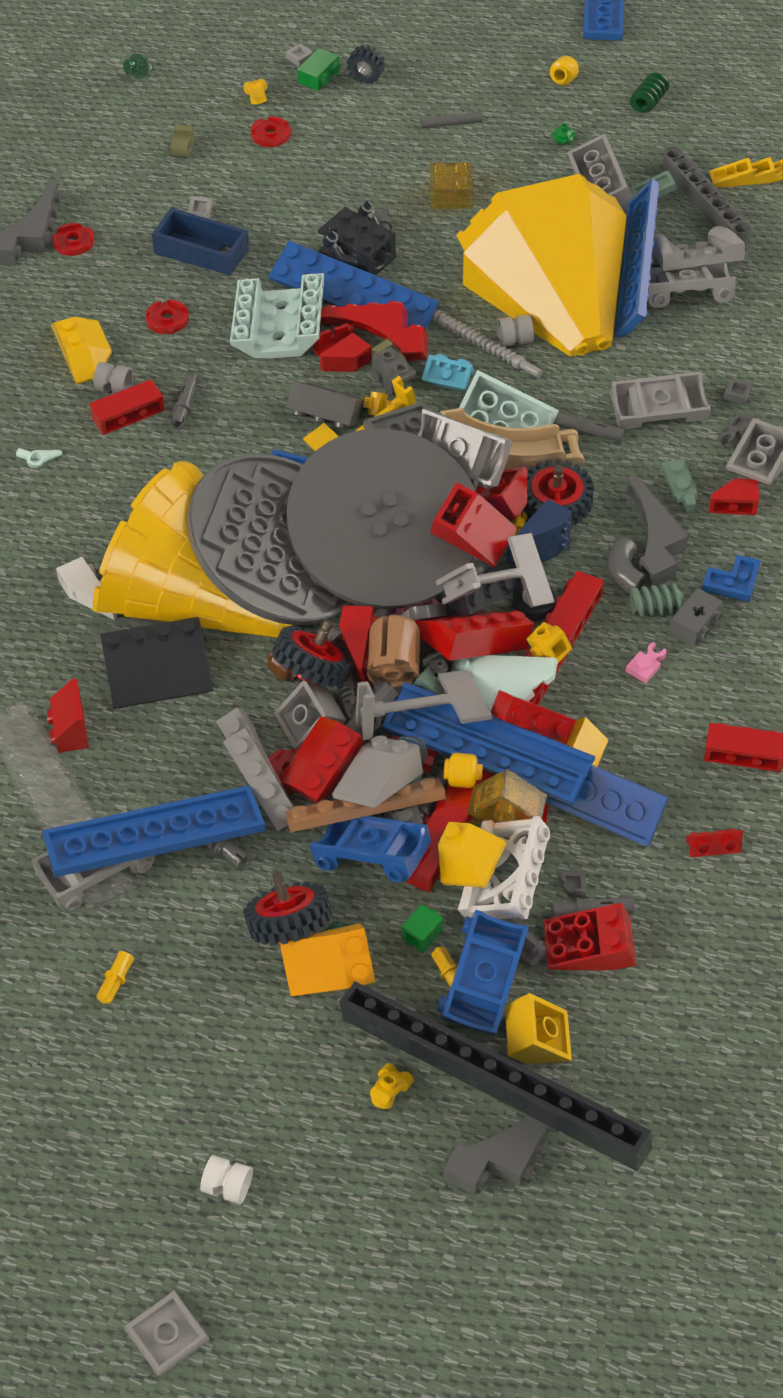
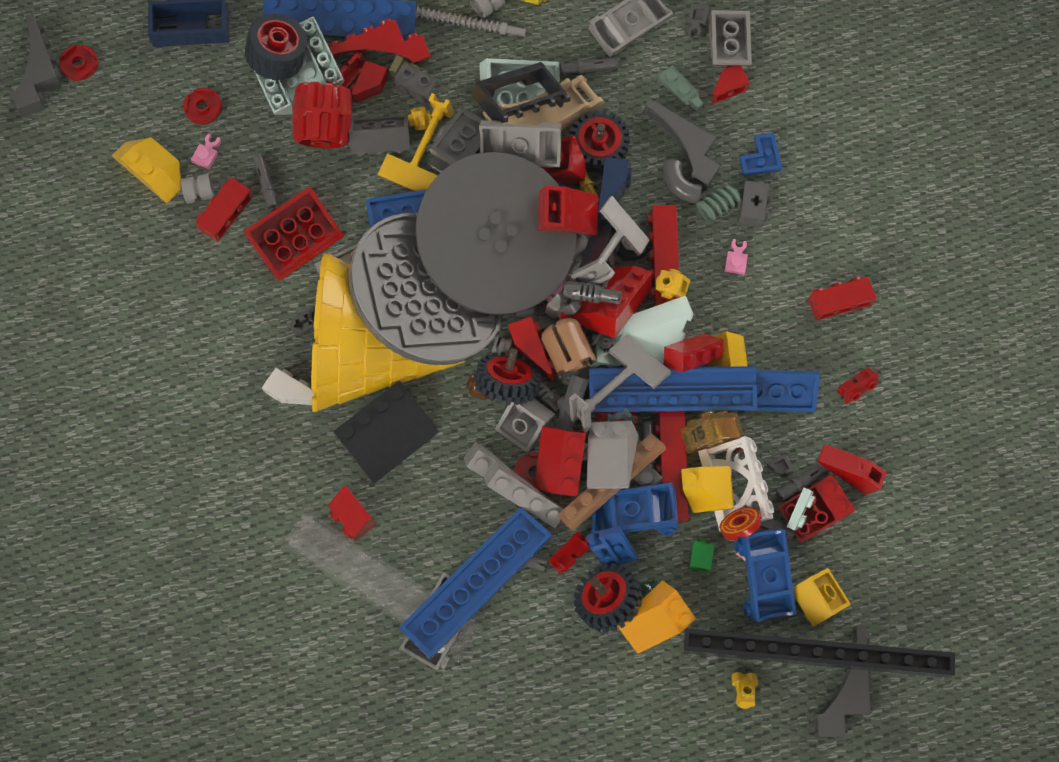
camera: 30 degrees left, 20 degrees up
(37, 458) = (179, 288): light aqua animal -> none
(115, 977) = (509, 705): yellow axle -> none
(142, 357) = (205, 155): none -> bright pink plate
(186, 438) = (293, 233): none -> red slope
(266, 281) = (276, 46): none -> black wheel
(274, 356) = (321, 115): none -> red wheel
(277, 860) = (566, 555): none -> red hinge
(330, 866) = (616, 543): none -> blue plate
(445, 964) = (733, 577): yellow axle -> none
(447, 372) = (456, 64): medium azure bracket -> none
(447, 602) = (591, 292): none -> dark grey hinge
(462, 770) = (668, 422): yellow head -> none
(481, 900) = (740, 523): none -> red tile
(518, 404) = (529, 75): none -> black hinge
(563, 921) = (805, 501): none -> light aqua plate
(652, 913) = (854, 470): none -> red slope

